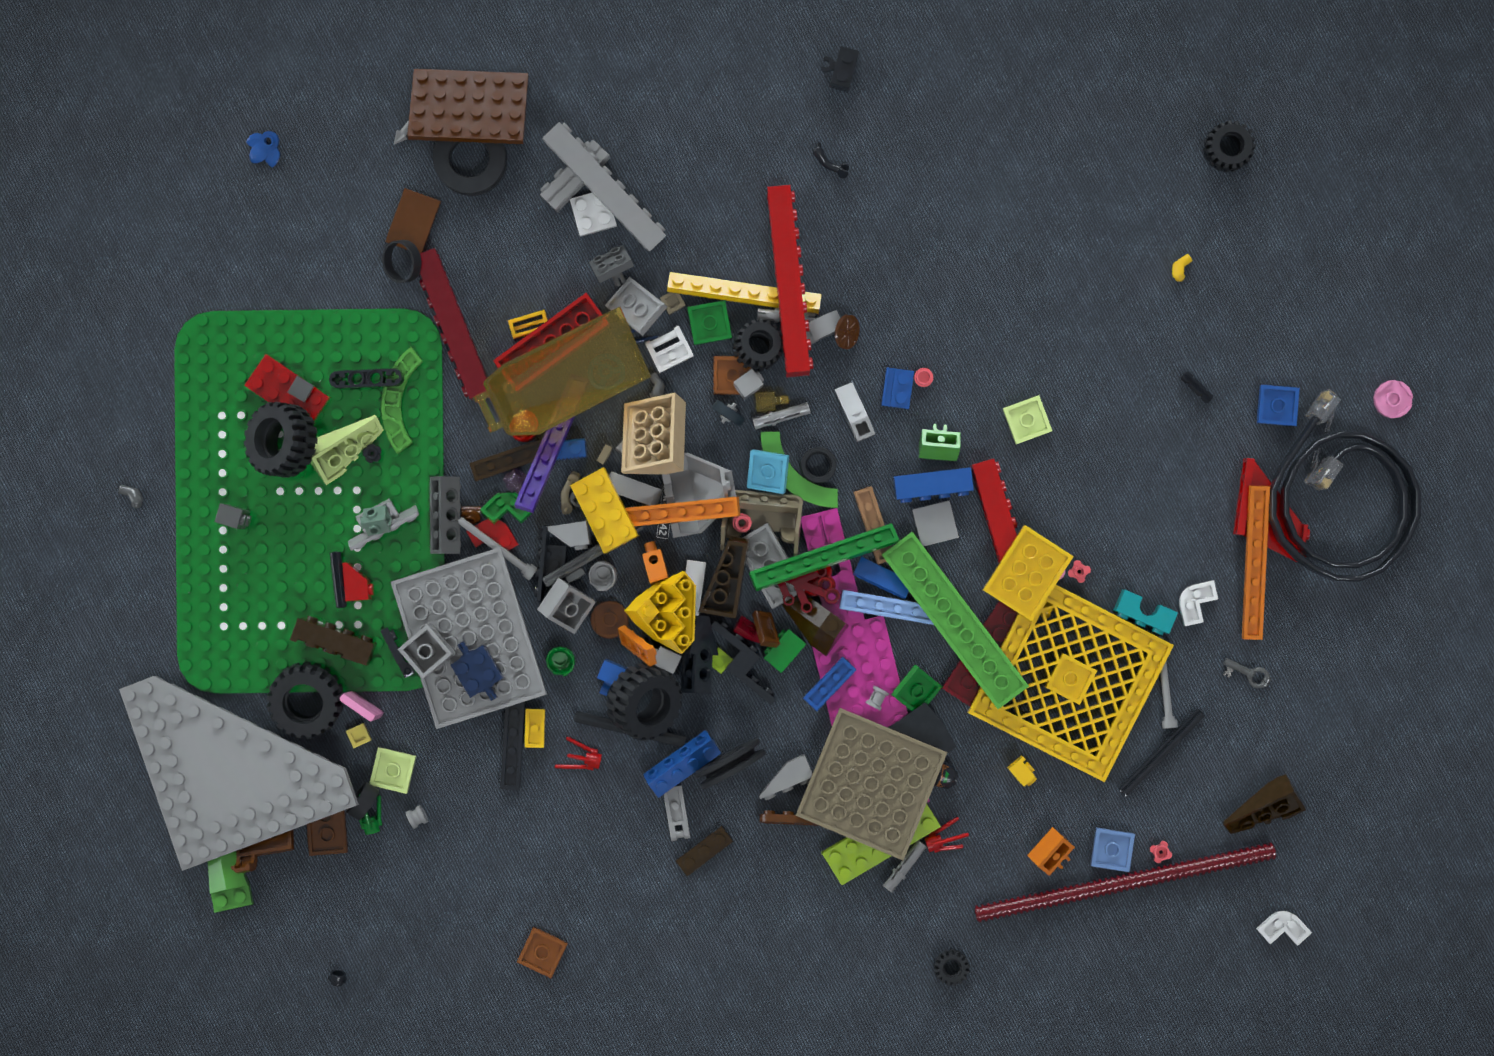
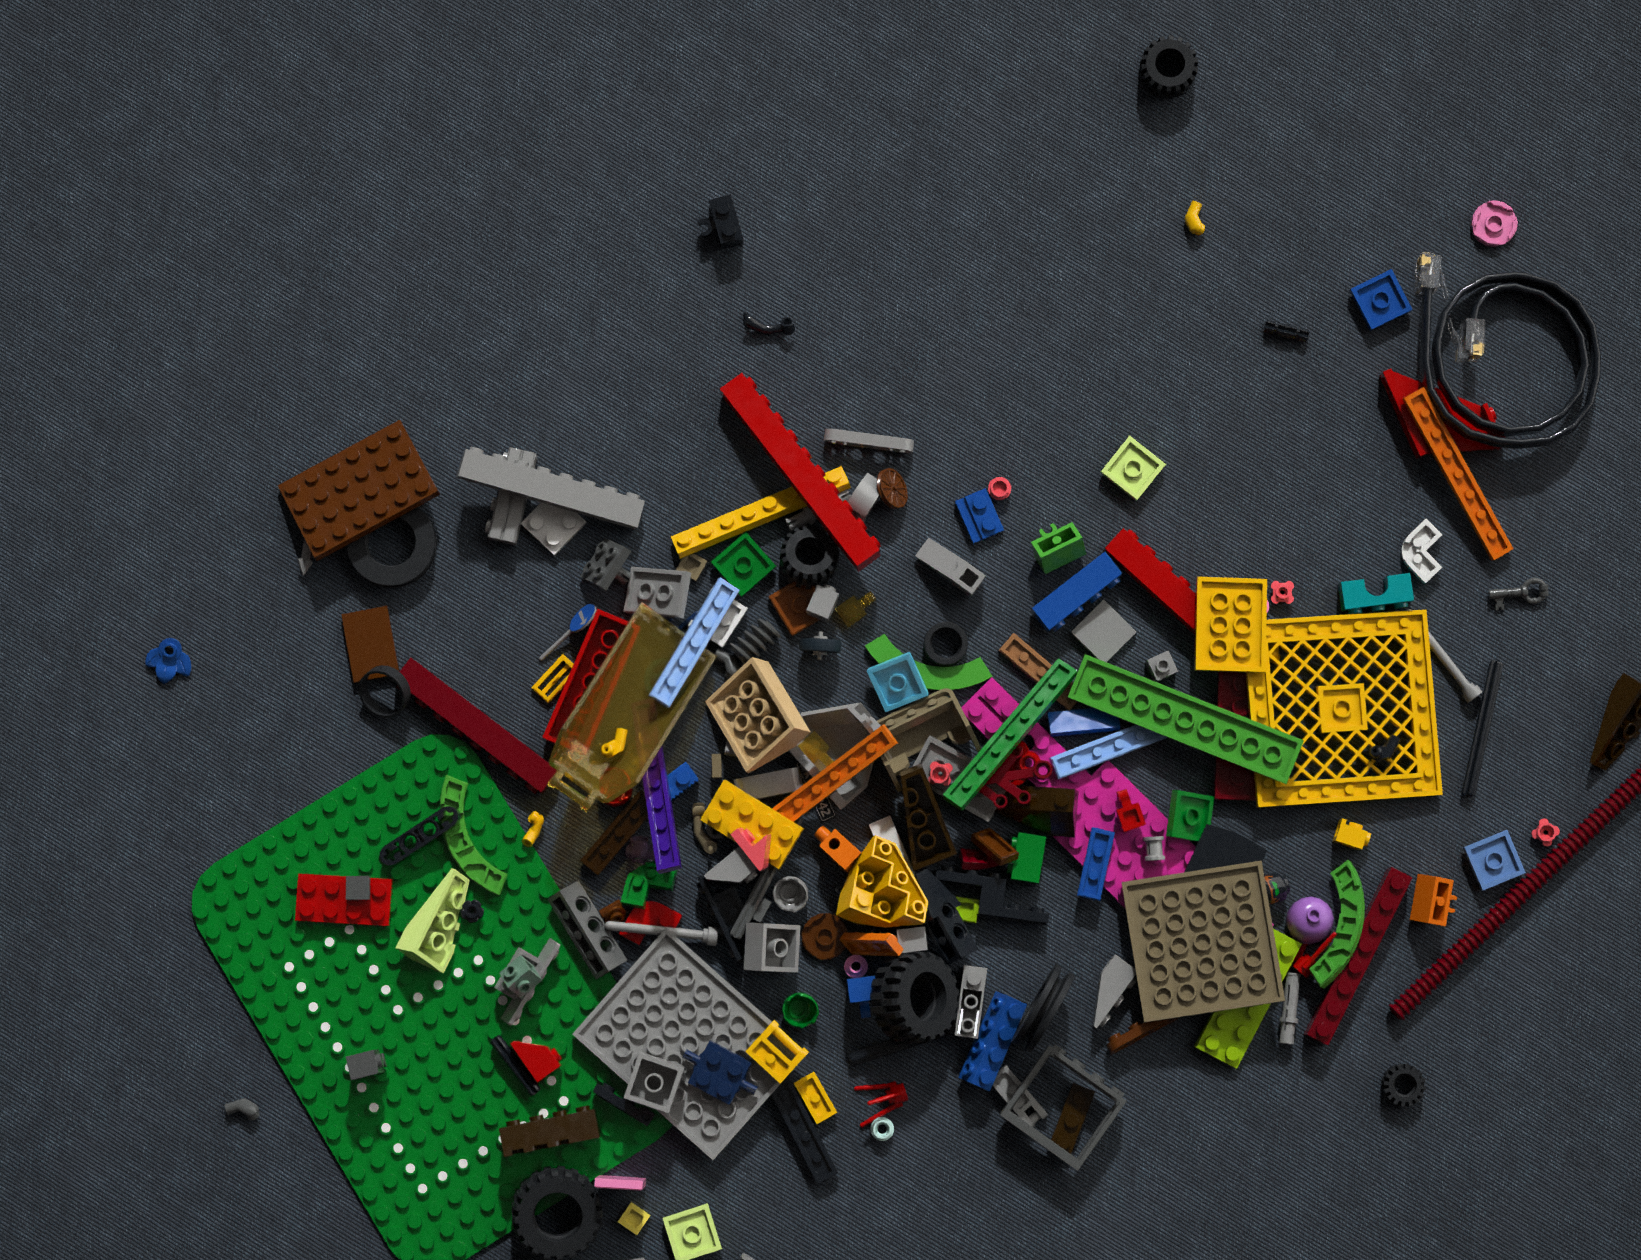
camera: 30 degrees left, 5 degrees down
(263, 439) = (347, 959): black tyre -> none
(449, 423) = (534, 831): none -> yellow arm
(519, 684) = (771, 1057): none -> yellow plate
(537, 398) = (615, 746): none -> yellow arm
(564, 782) = (882, 1136): none -> light aqua plate
(566, 295) = (578, 623): none -> piece
(594, 533) = (758, 852): none -> coral slope
(613, 658) = (852, 973): none -> bright pink plate
(639, 357) = (693, 643): none -> light blue tile
(673, 850) = (1094, 1079): none -> dark grey window
(682, 484) = (815, 749): none -> clear yellow plate
(683, 727) = (970, 1001): none -> light grey slope
(684, 382) = (754, 640): none -> dark grey piece
(745, 527) = (909, 751): coral plate -> none
(763, 554) = (935, 769): none -> coral plate
(781, 415) = (869, 623): light grey pin -> none
(852, 288) = (868, 440): none -> light grey beam
(875, 663) = (1130, 814): none -> red plate
(956, 813) = (1309, 920): none -> medium lavender cylinder
(961, 572) = (1161, 666): none -> light grey brick
(975, 858) = (1342, 988): none -> dark red brick
(980, 835) = (1348, 928): none -> bright green tile
(1083, 728) = (1385, 751): none -> black arm

